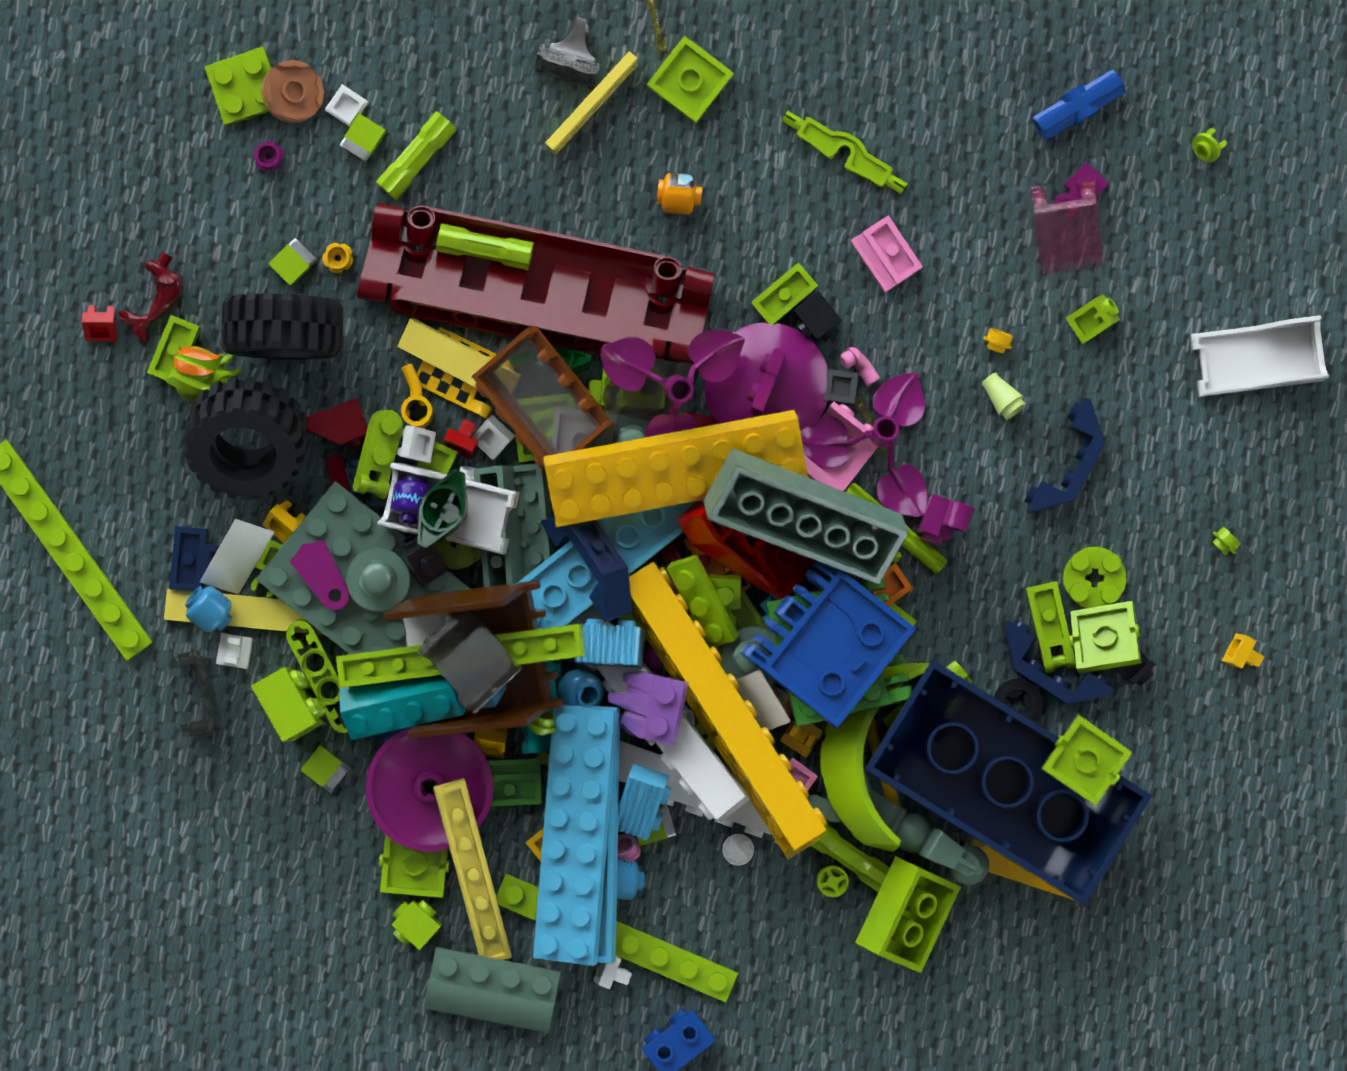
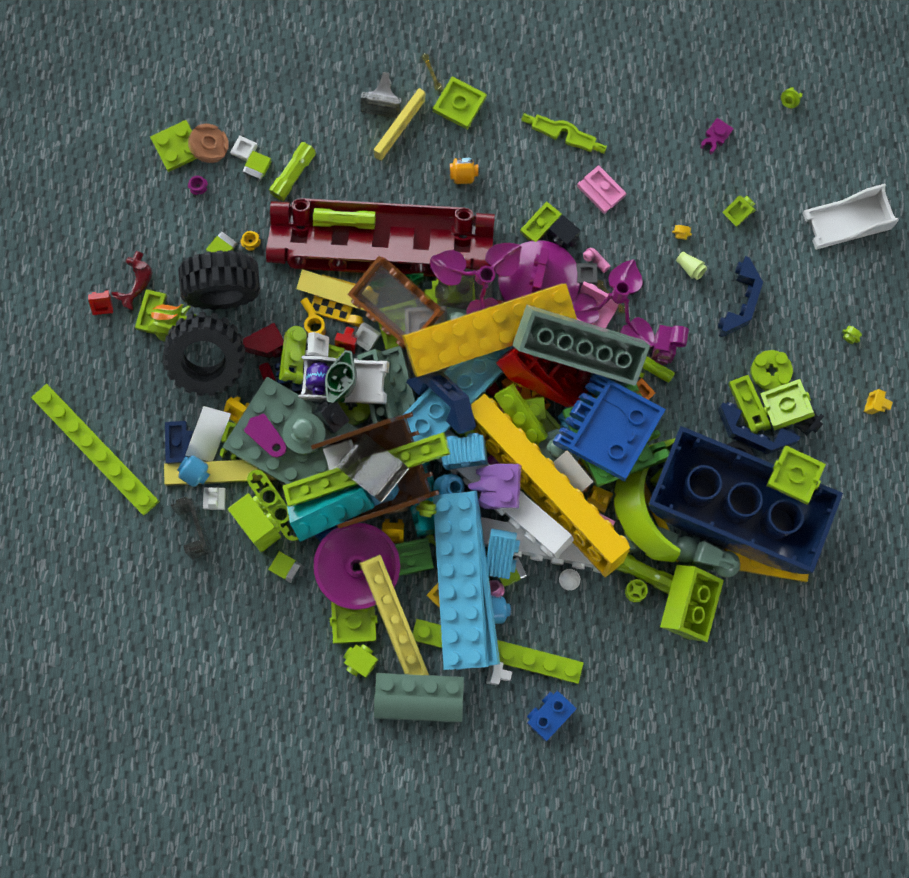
camera: 10 degrees left, 10 degrees down
(1067, 230) = (713, 159): clear pink flag -> none
(1079, 104) = (705, 84): blue piece -> none

